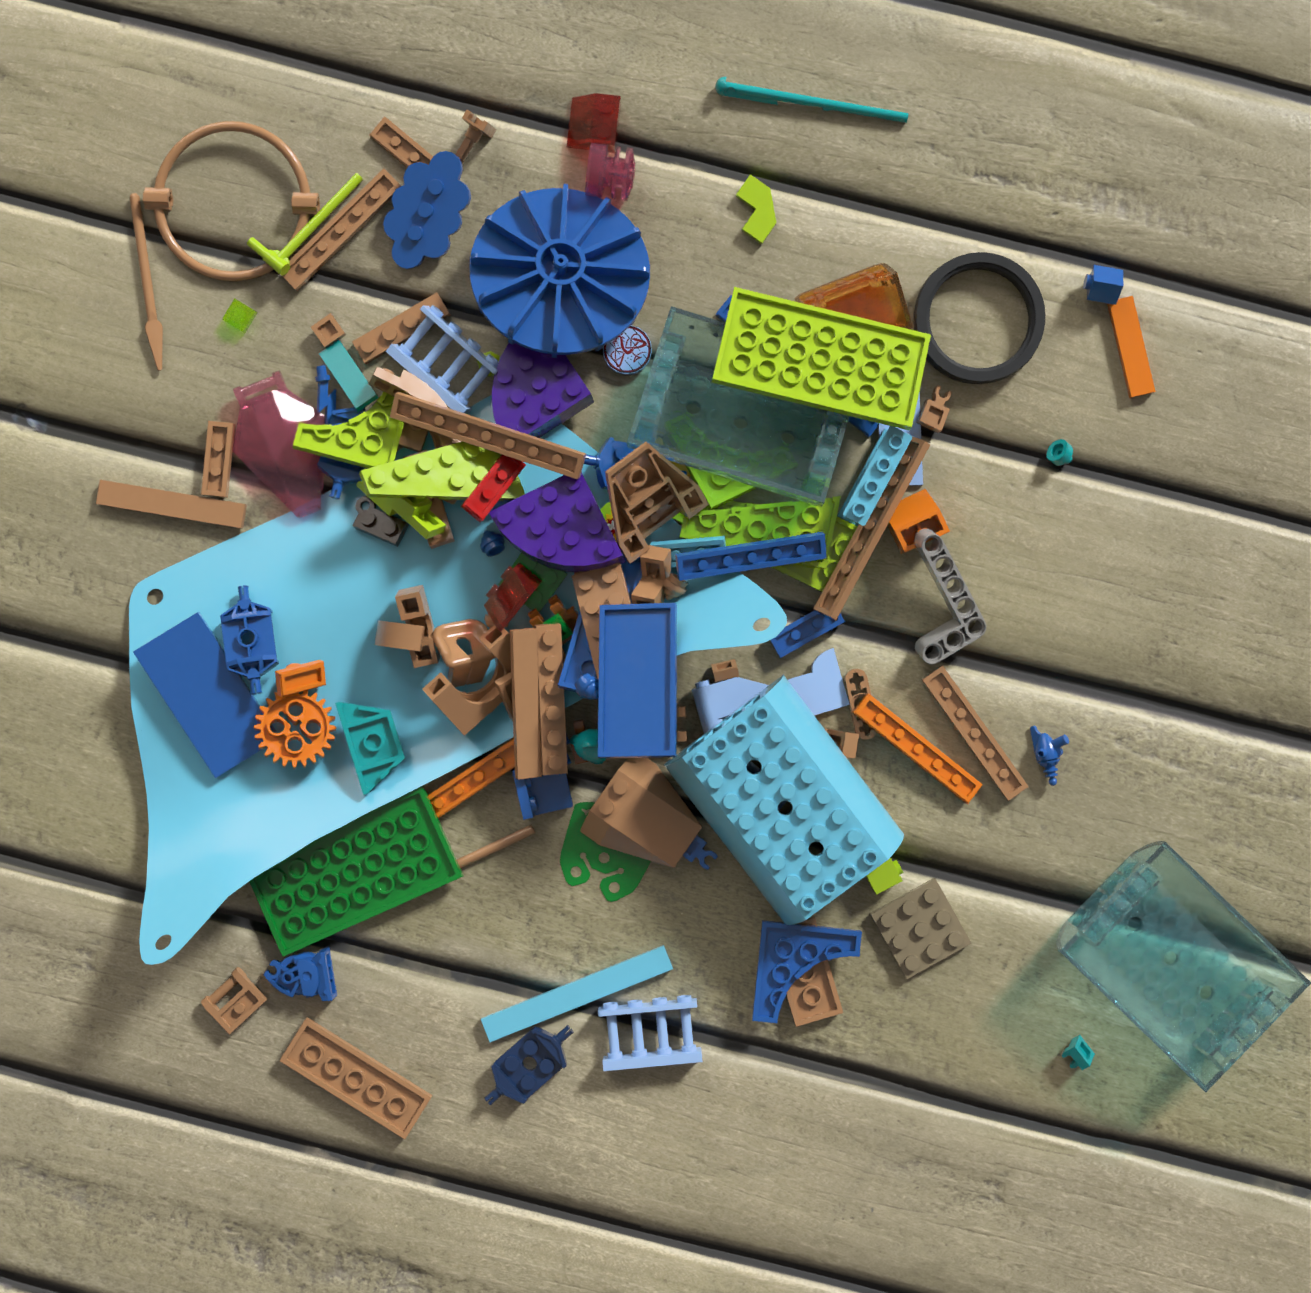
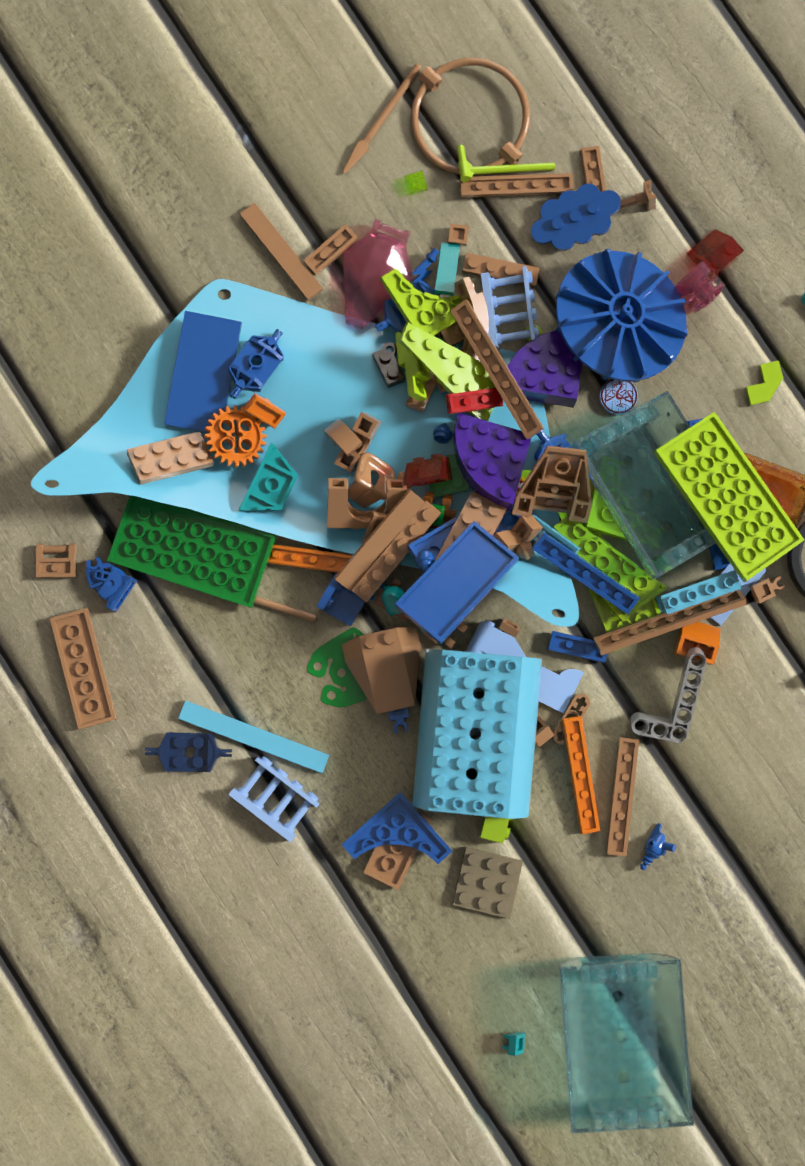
camera: 45 degrees right, 5 degrees down
(251, 807) = (169, 457): none -> plate

